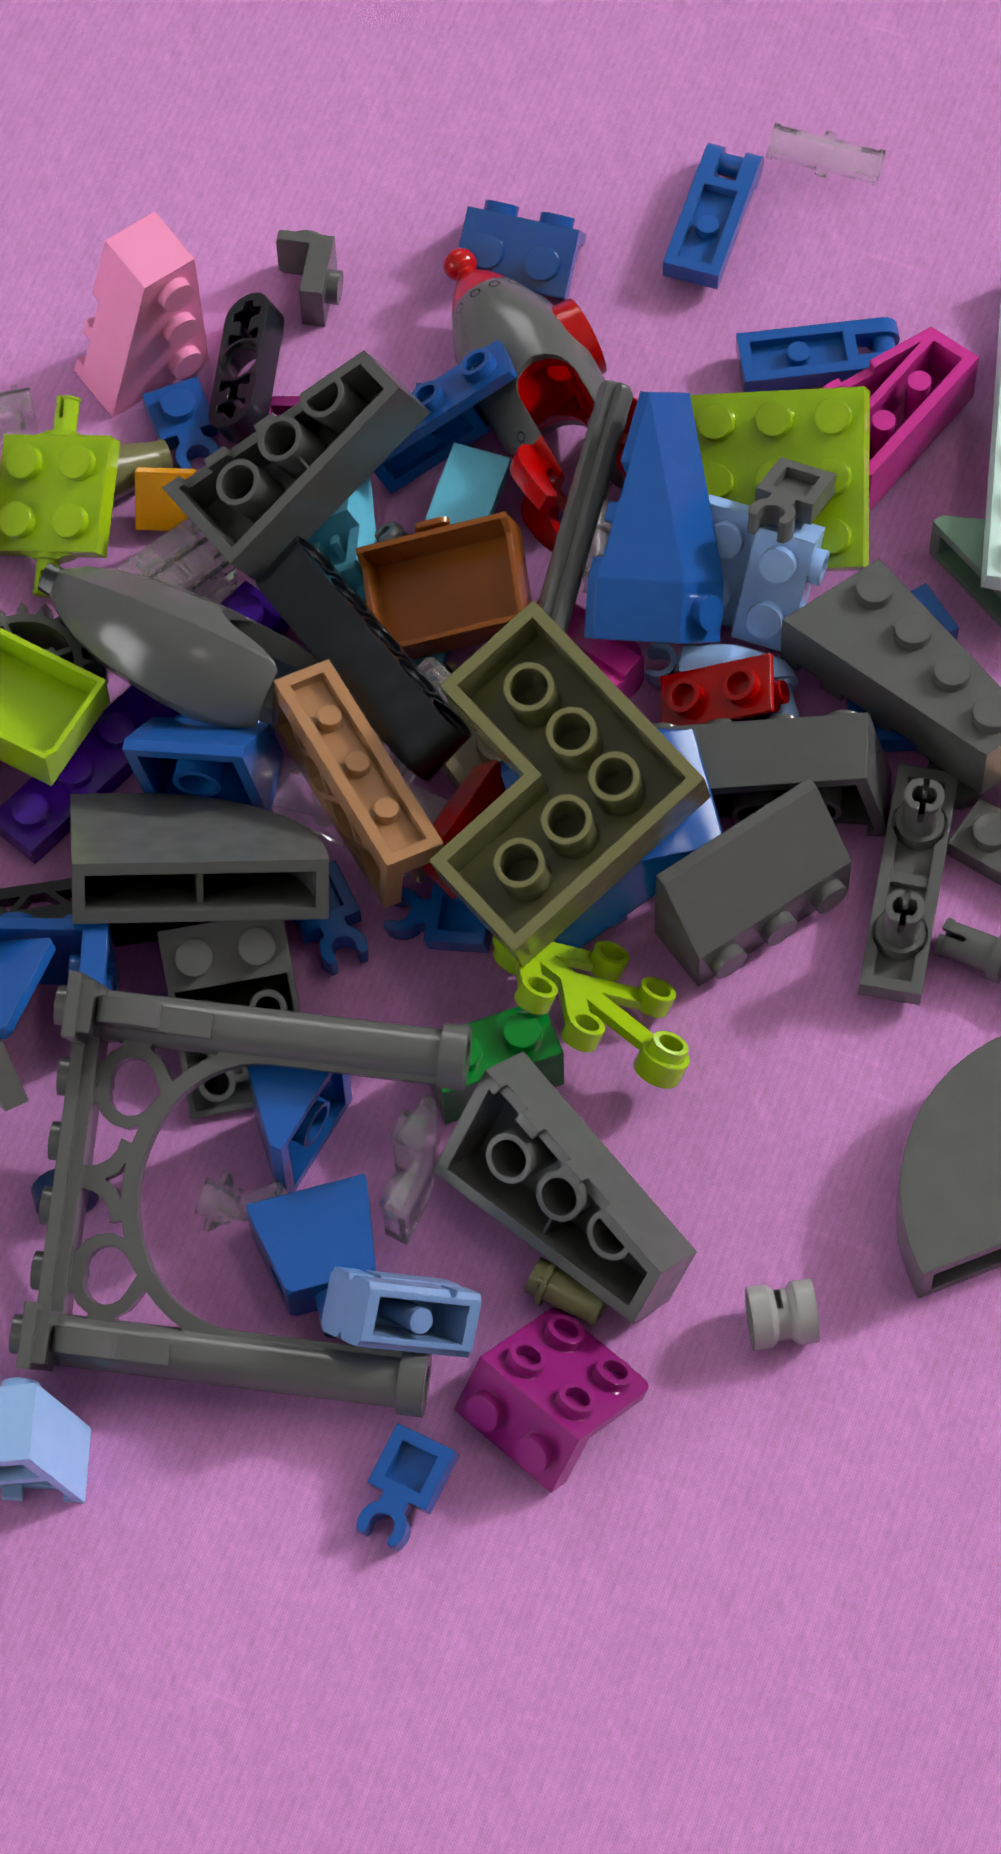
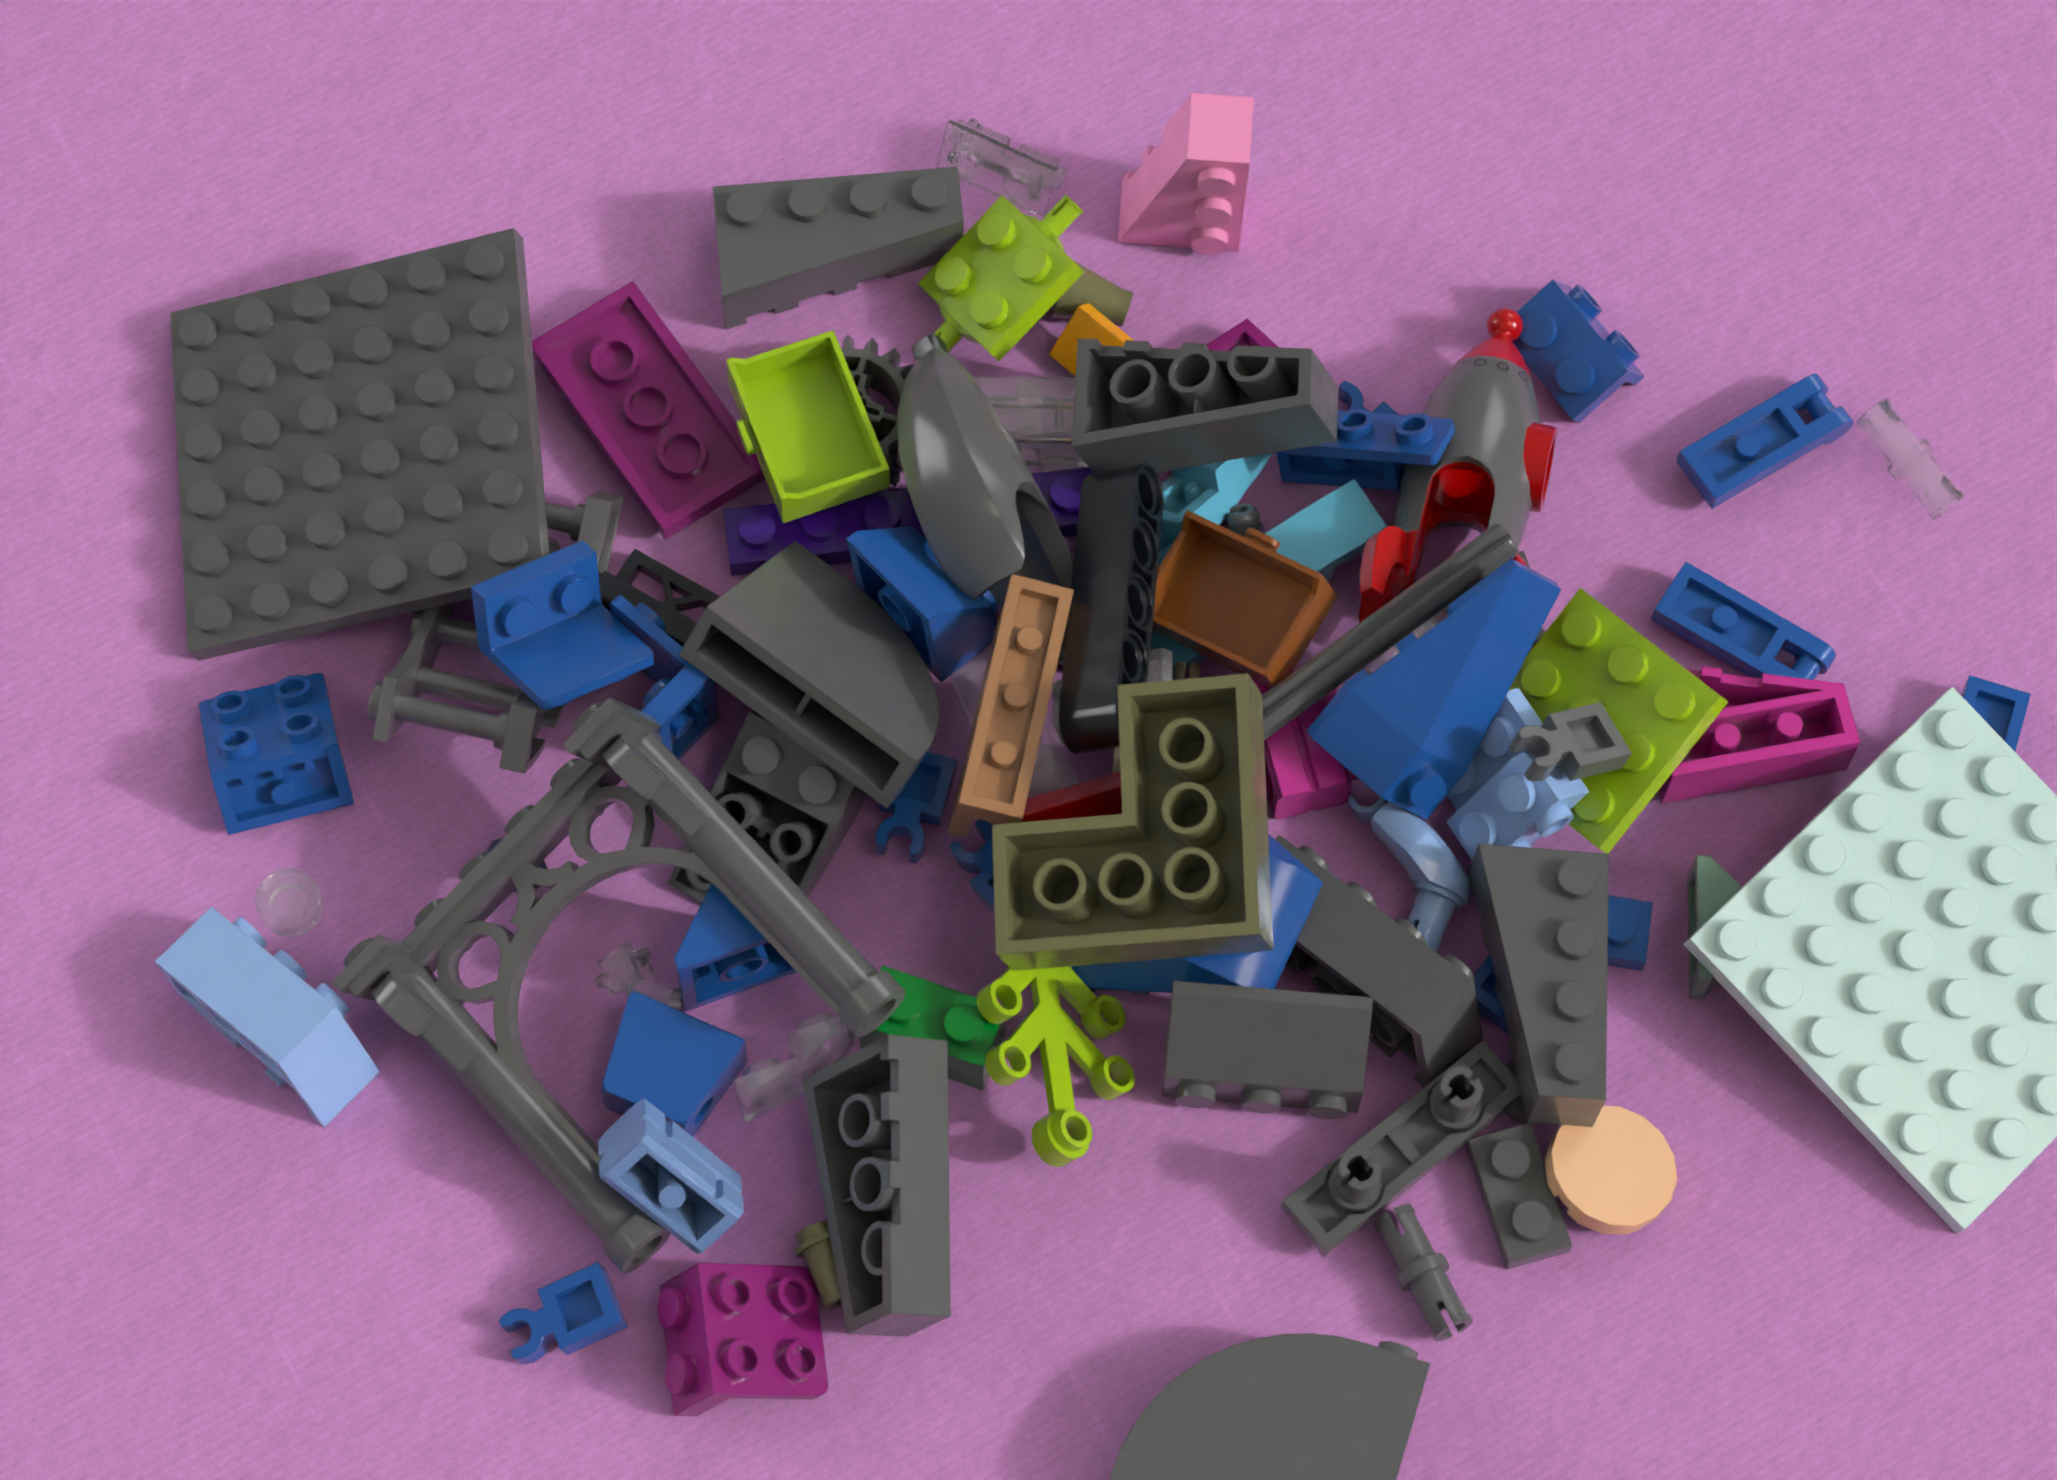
camera: 35 degrees right, 5 degrees up
(182, 420) = (1166, 289): blue plate -> none
(249, 333) = (1227, 308): black beam -> none
(315, 259) = (1384, 248): dark grey bracket -> none
(722, 691) = (1385, 867): red hinge -> none
(782, 1314) = (976, 1422): light grey wheel -> none

